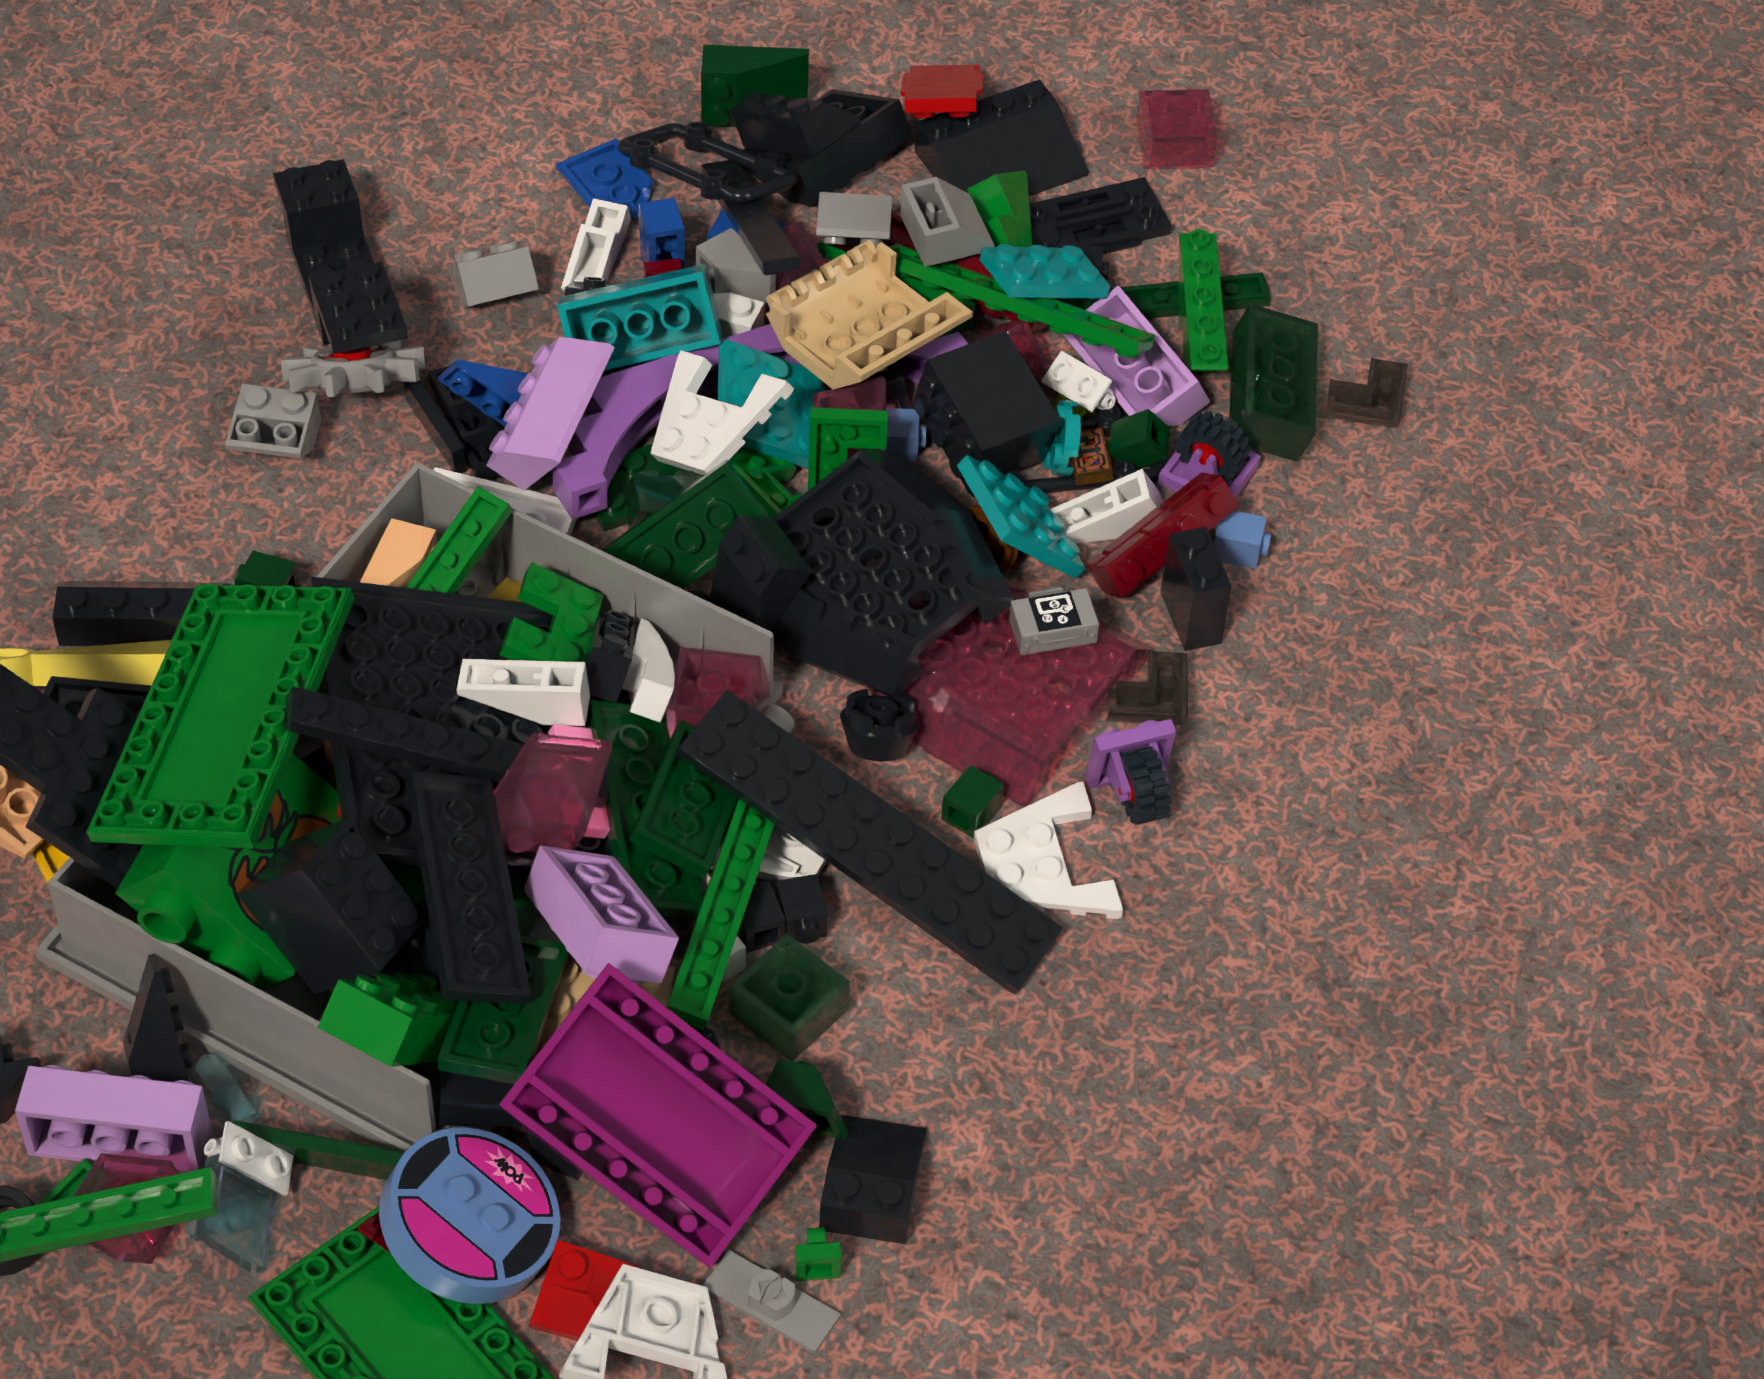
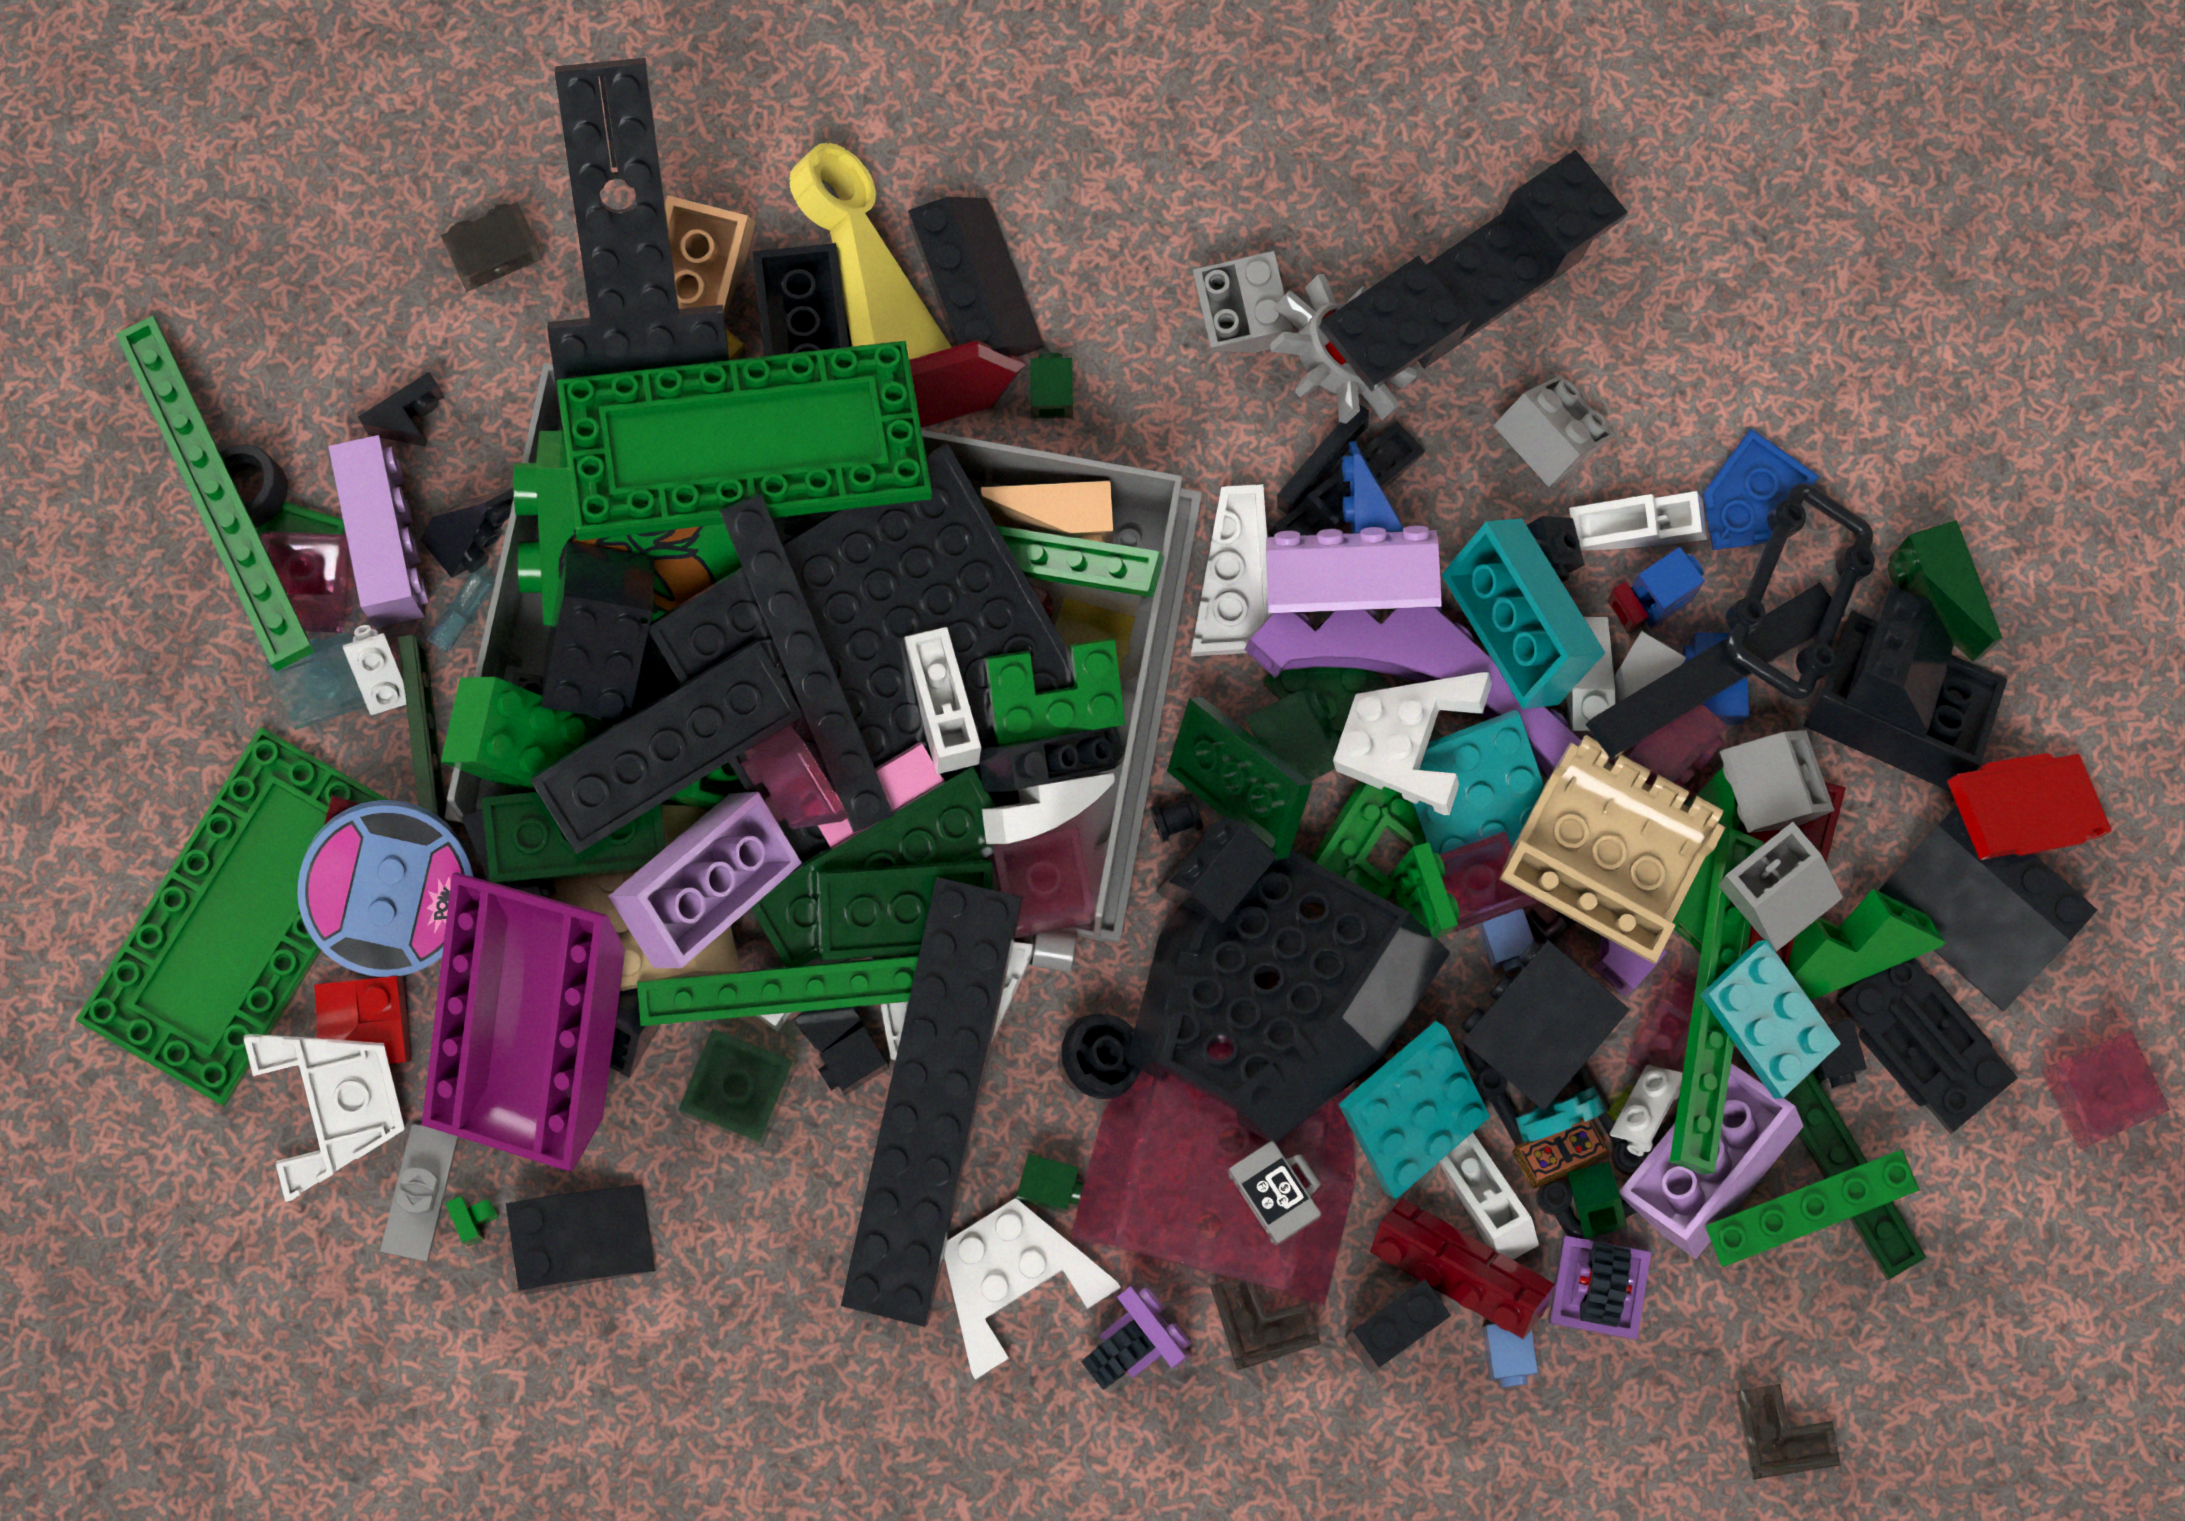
camera: 70 degrees right, 25 degrees up
(806, 1091) = (628, 1145): dark green slope -> none
(1274, 381) = (1741, 1322): clear green brick -> none

